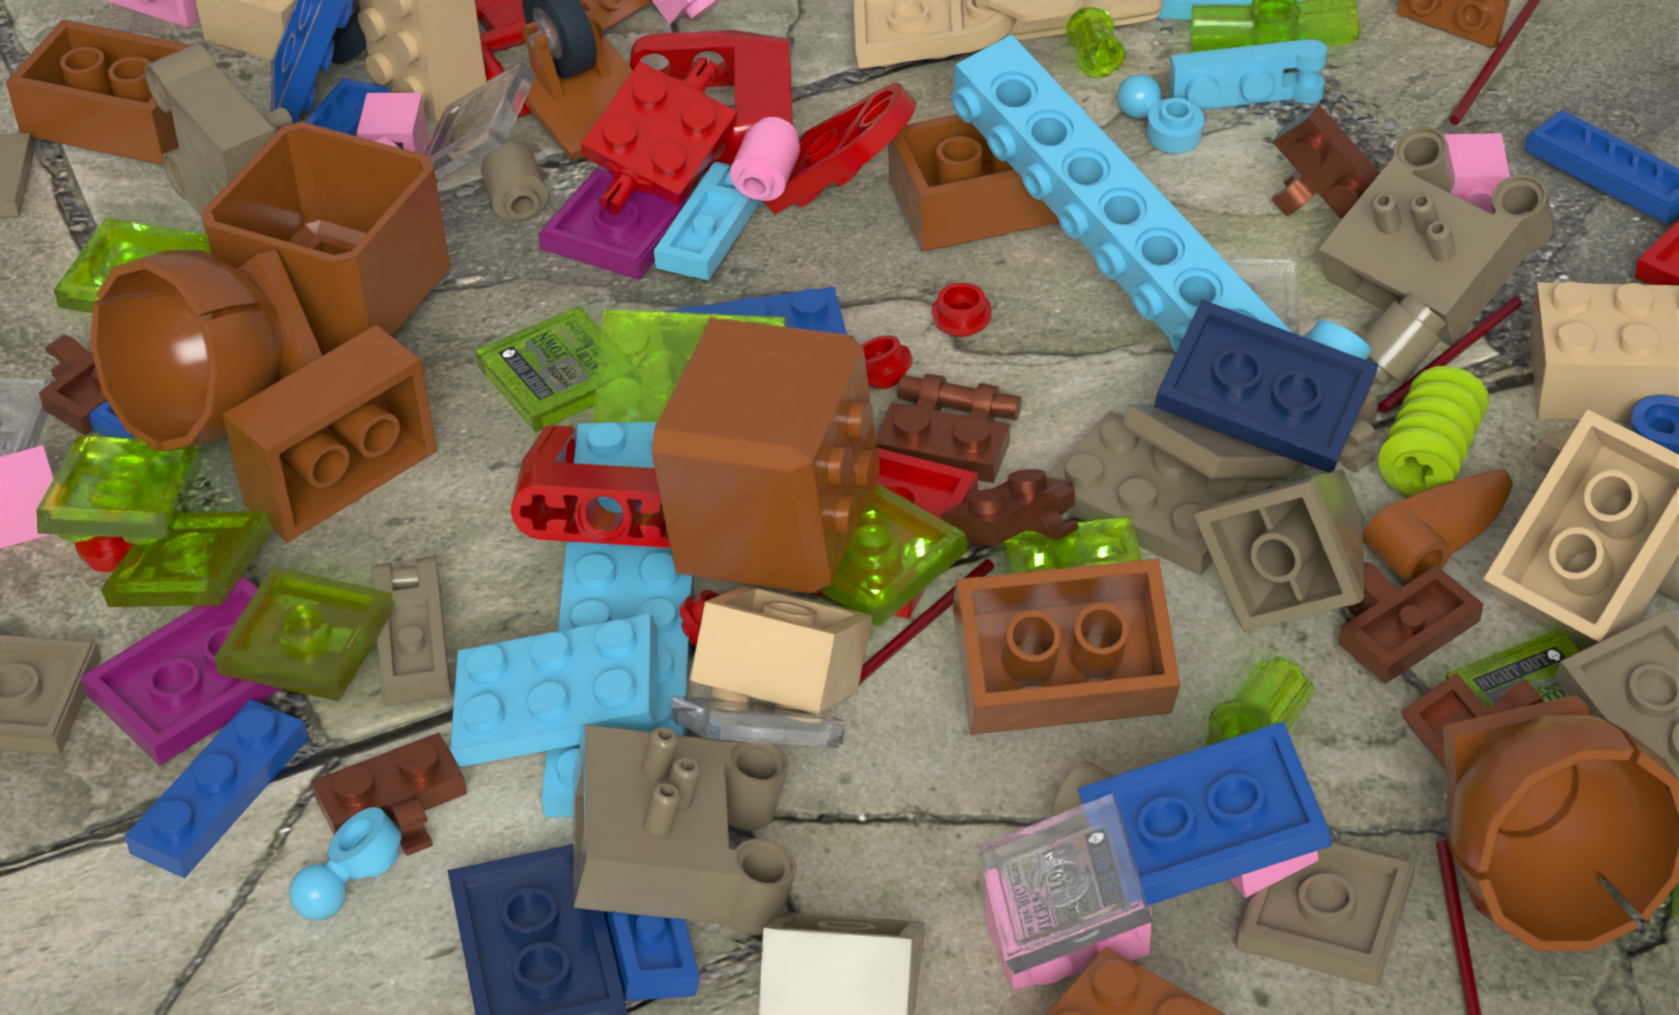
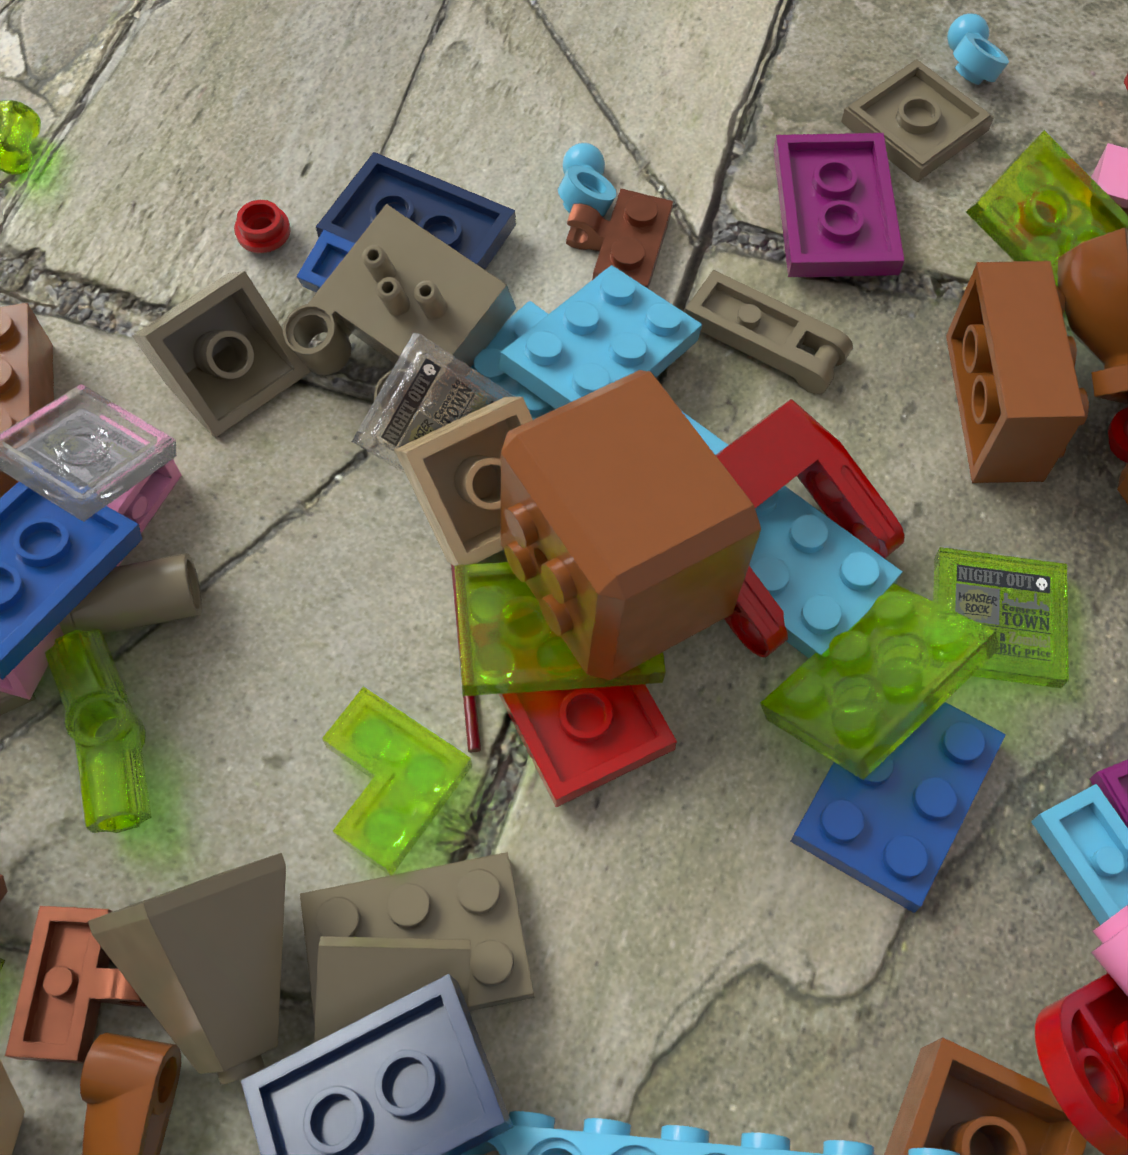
camera: 130 degrees right, 20 degrees up
(192, 566) = (943, 242): clear neon green tile -> none
(216, 788) = (726, 169): blue plate -> none
(305, 633) = (802, 251): clear neon green tile -> none
(886, 361) = (784, 846): red plate -> none
(949, 438) = (640, 831): copper plate -> none
(961, 310) = (810, 984): red plate -> none
(1020, 504) = (482, 782): copper plate -> none
(1065, 646) = (289, 664): dark orange brick -> none

